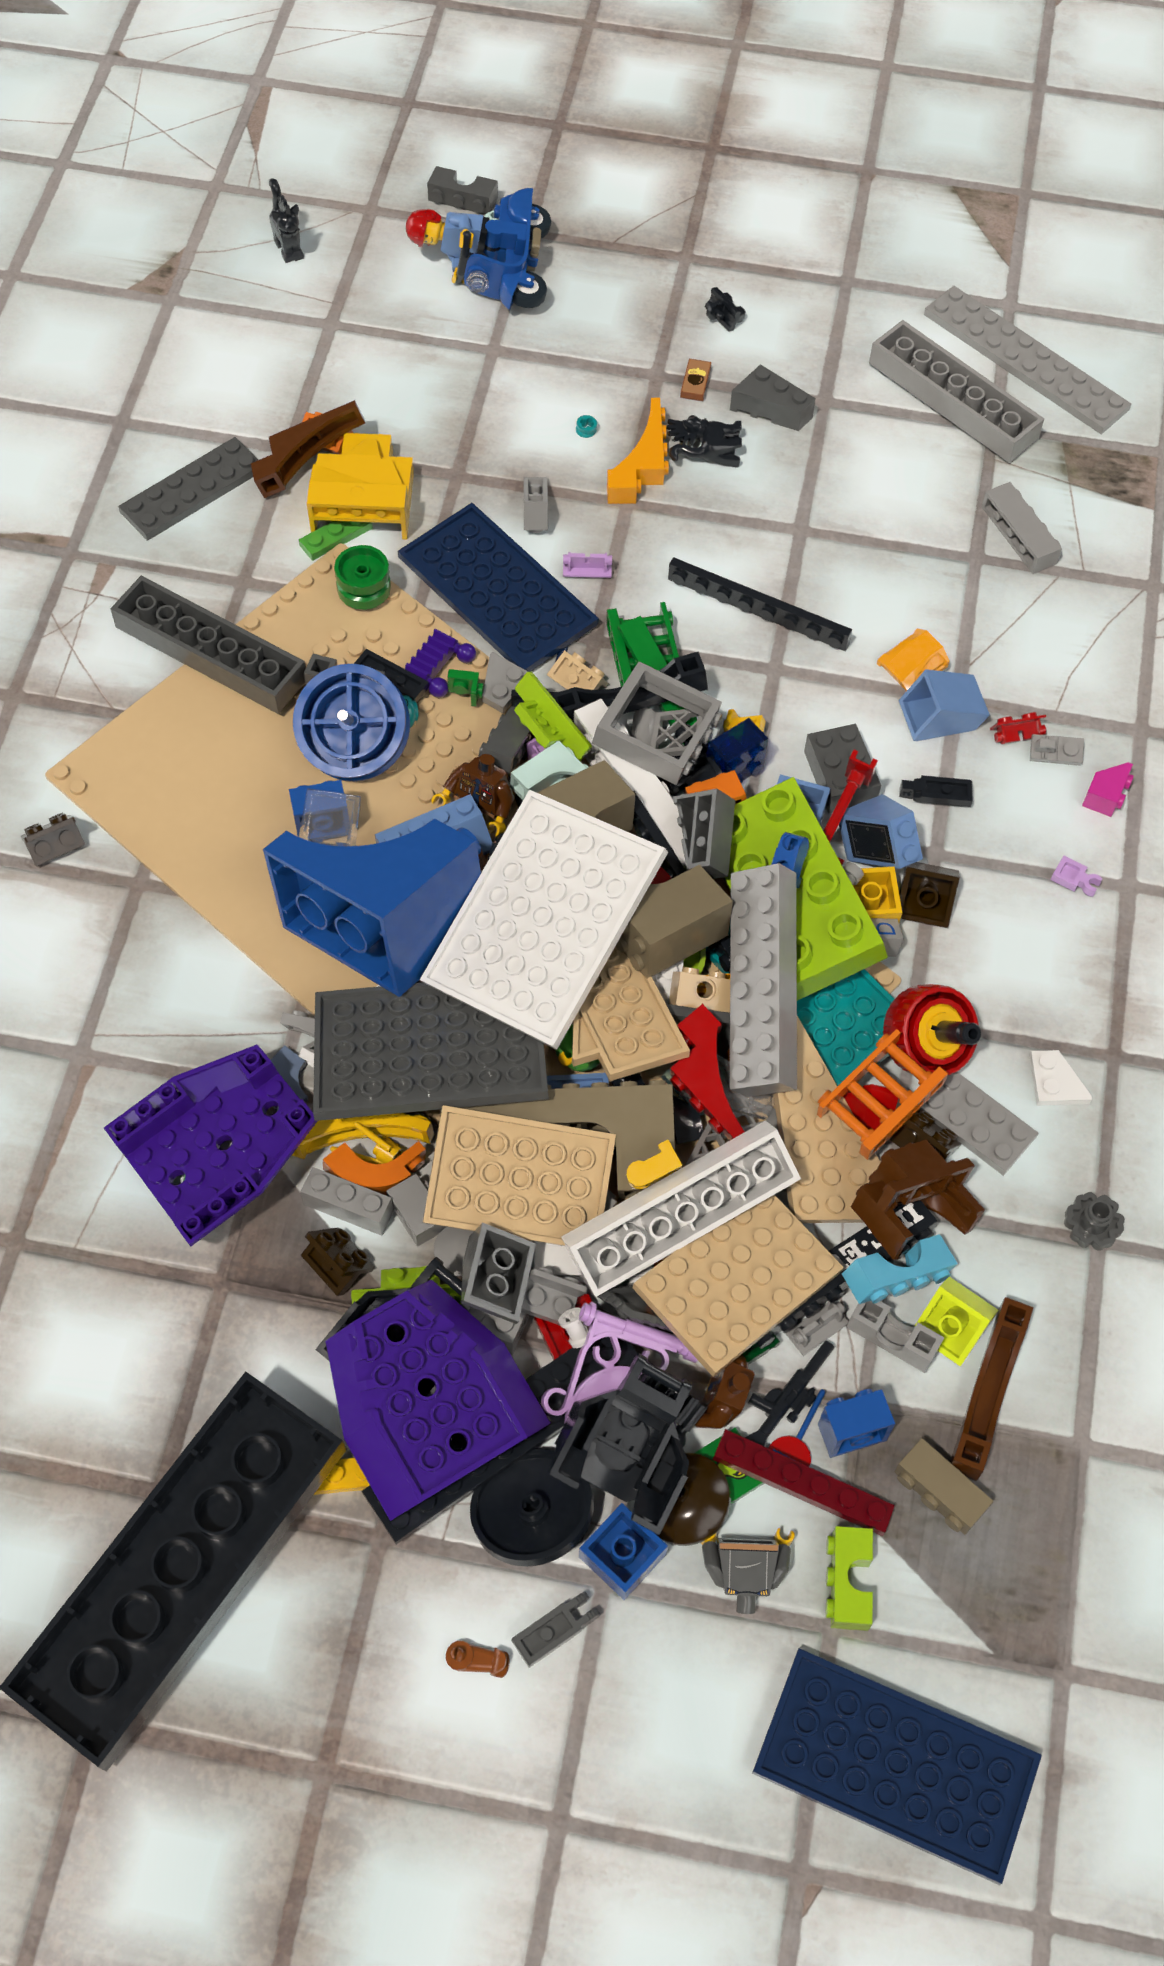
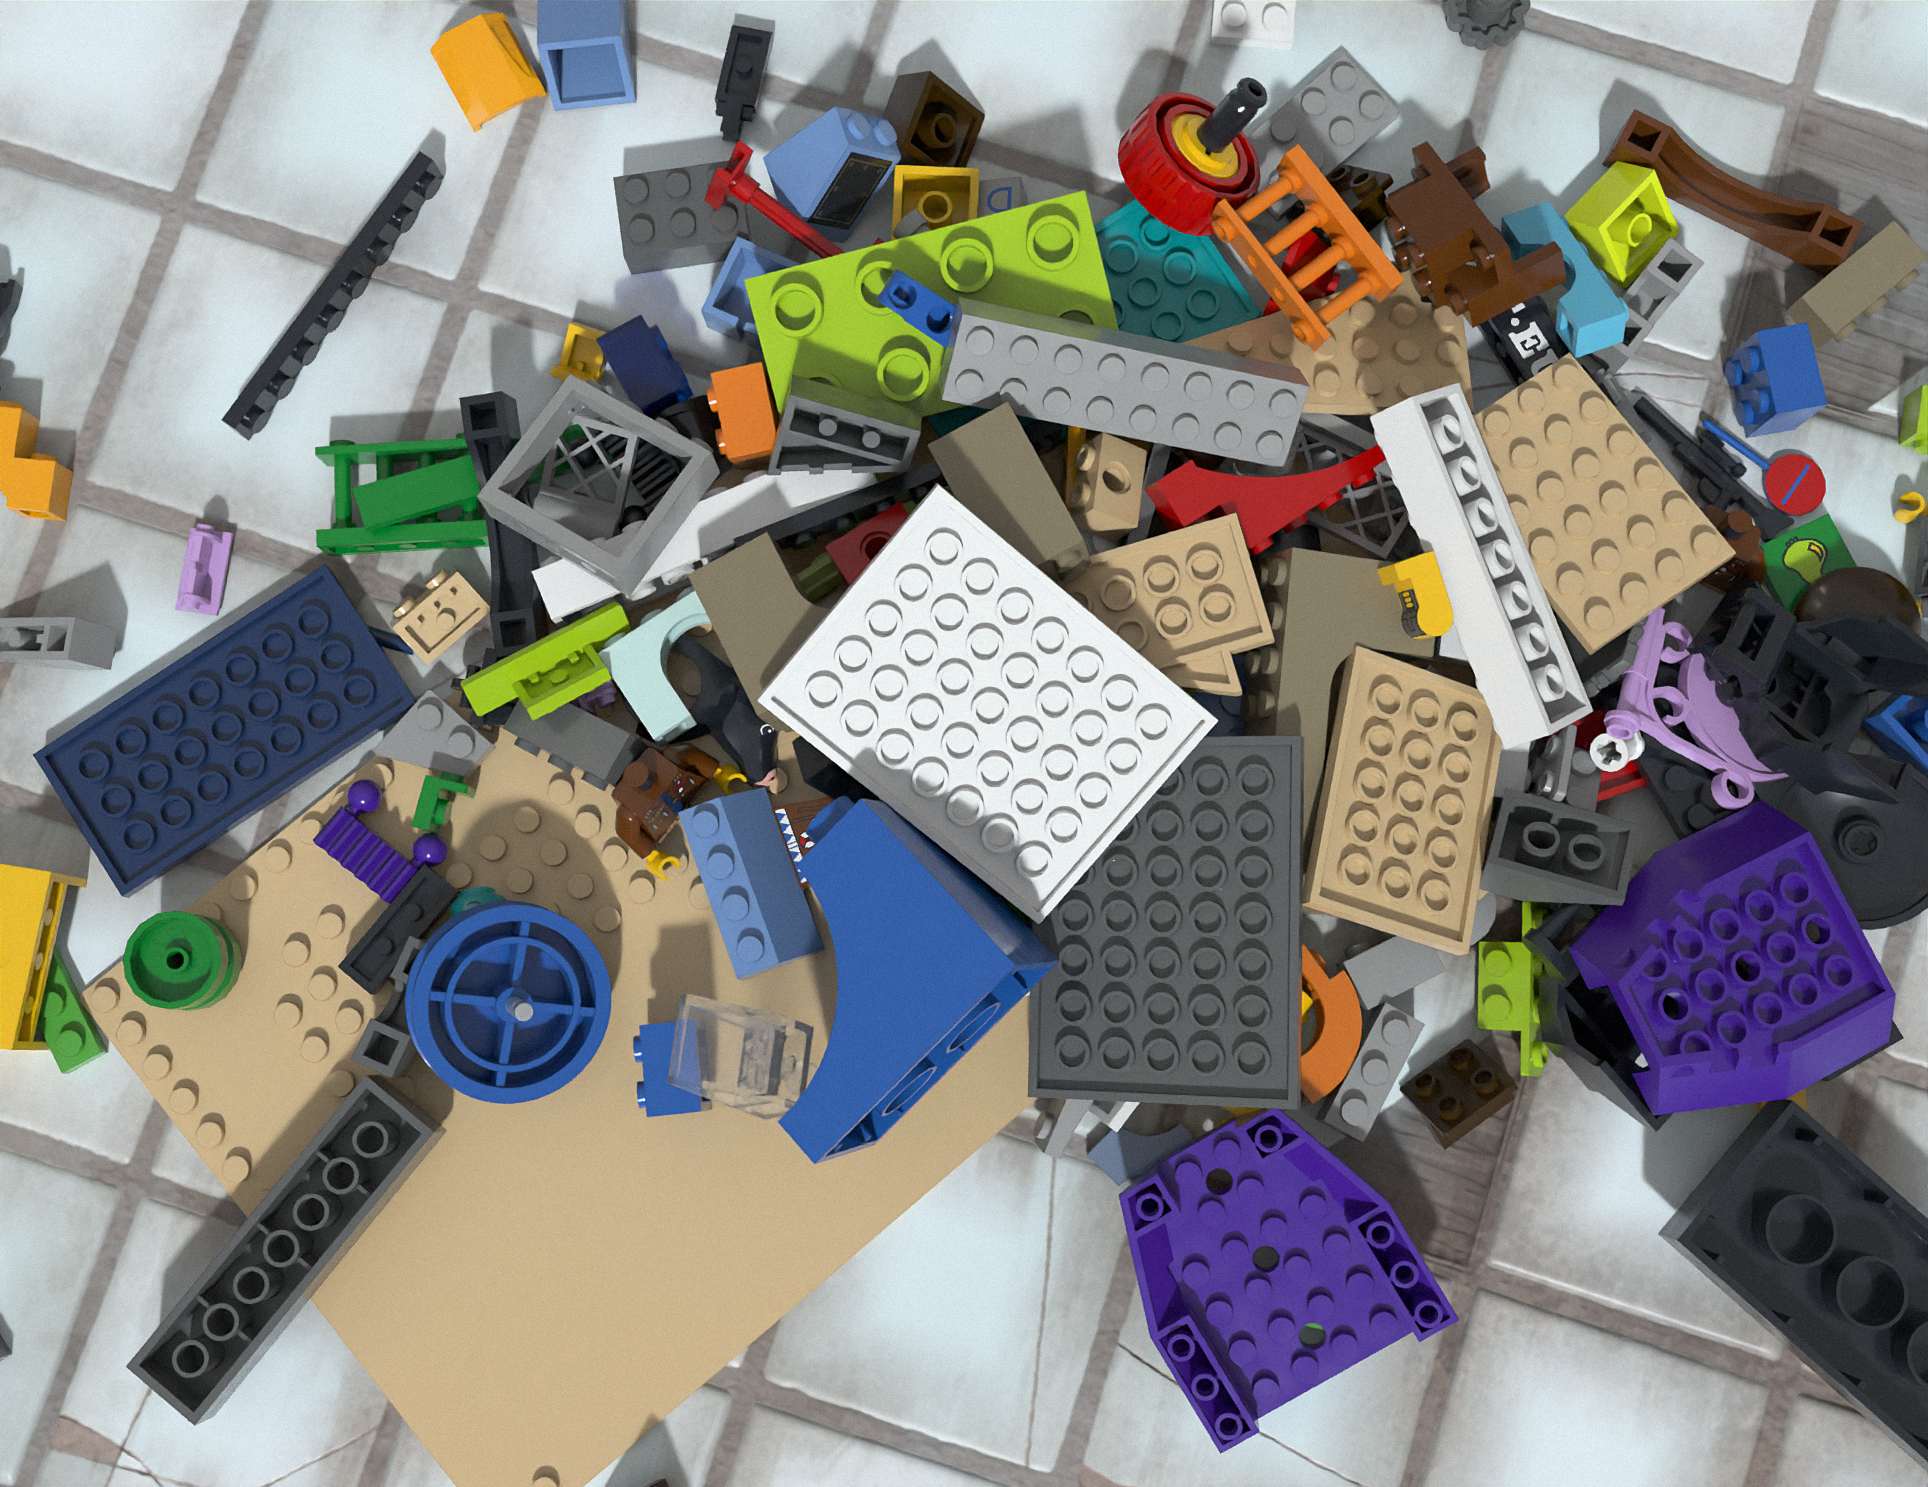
camera: 80 degrees left, 20 degrees up
(803, 1482) = (1838, 469): dark red plate -> none

